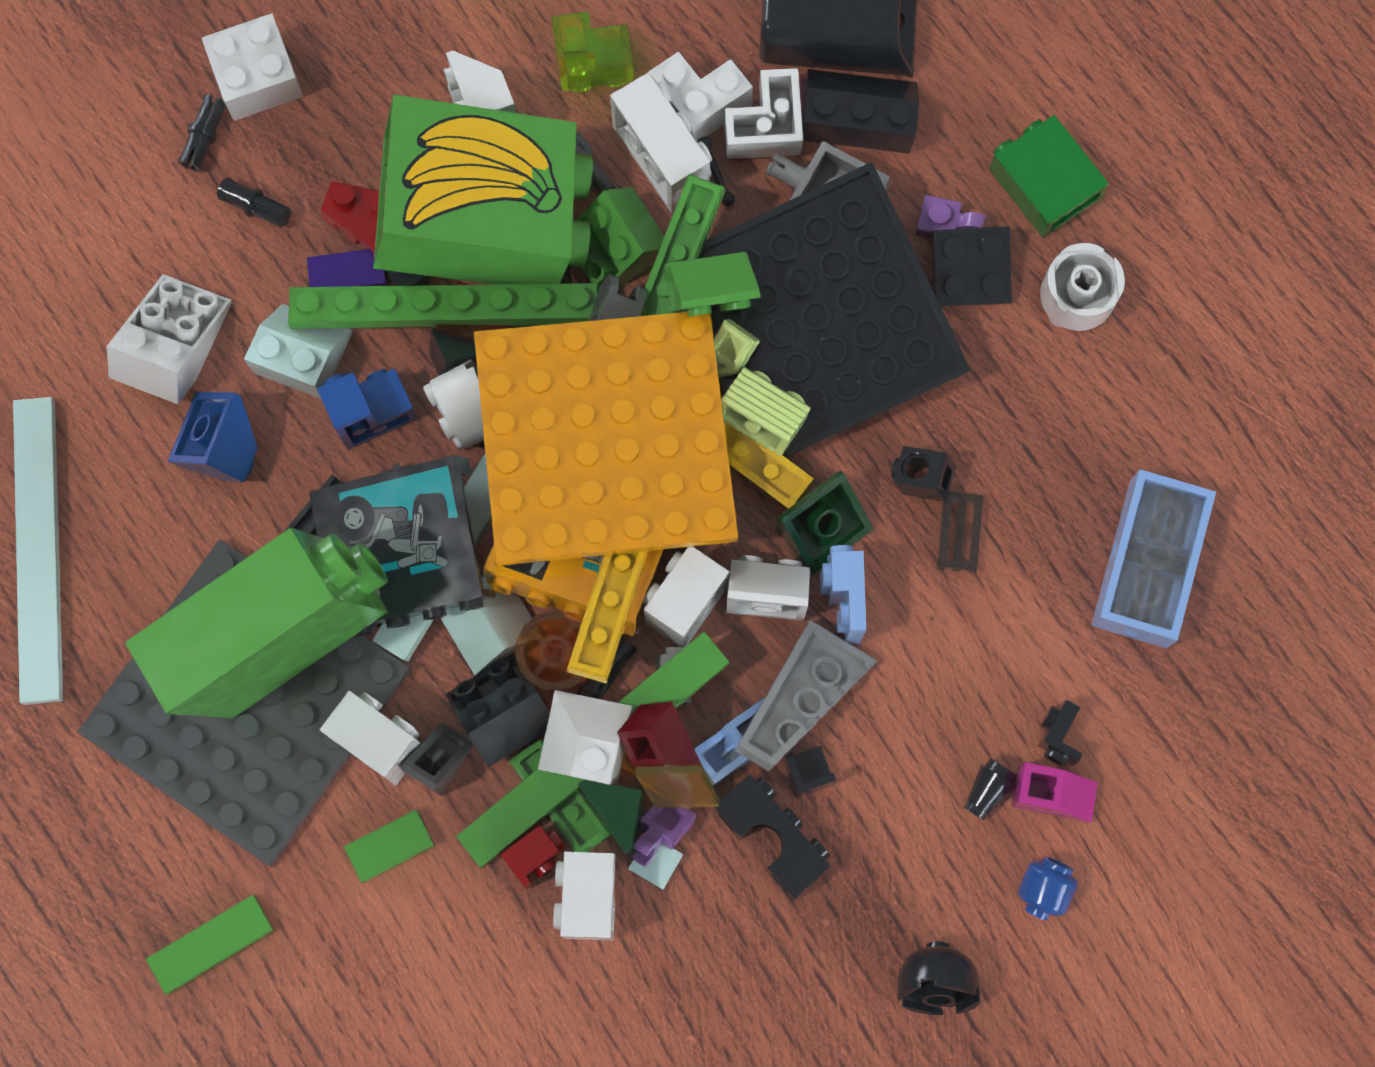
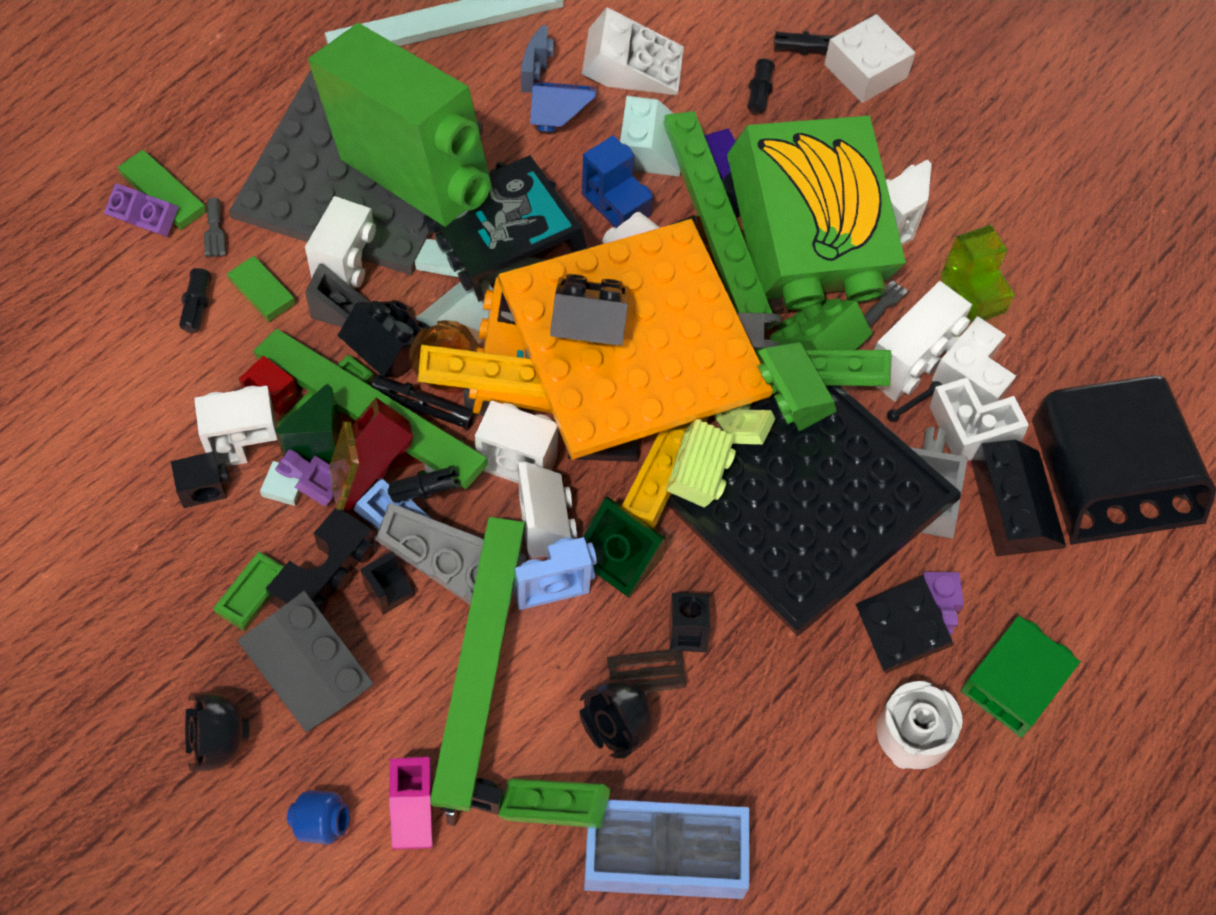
camera: 70 degrees right, 15 degrees down
(135, 448) = (535, 58): none -> sand blue slope
(239, 972) = (141, 210): none -> medium lavender slope
(299, 890) = (214, 237): none -> dark grey piece
(388, 926) = (195, 300): none -> black axle
(583, 471) = (590, 310): none -> slope
(584, 738) = (358, 385): white slope -> none
(634, 951) = (199, 479): none -> black brick
(719, 705) = (424, 484): none -> black axle
(777, 918) = (248, 592): none -> bright green tile
(887, 870) = (305, 662): none -> dark grey slope
(928, 691) = (478, 666): none -> bright green tile
(989, 788) = (404, 743): black cone -> none
(1010, 567) = (617, 716): none -> black cylinder
(1090, 651) = (555, 802): none -> bright green tile

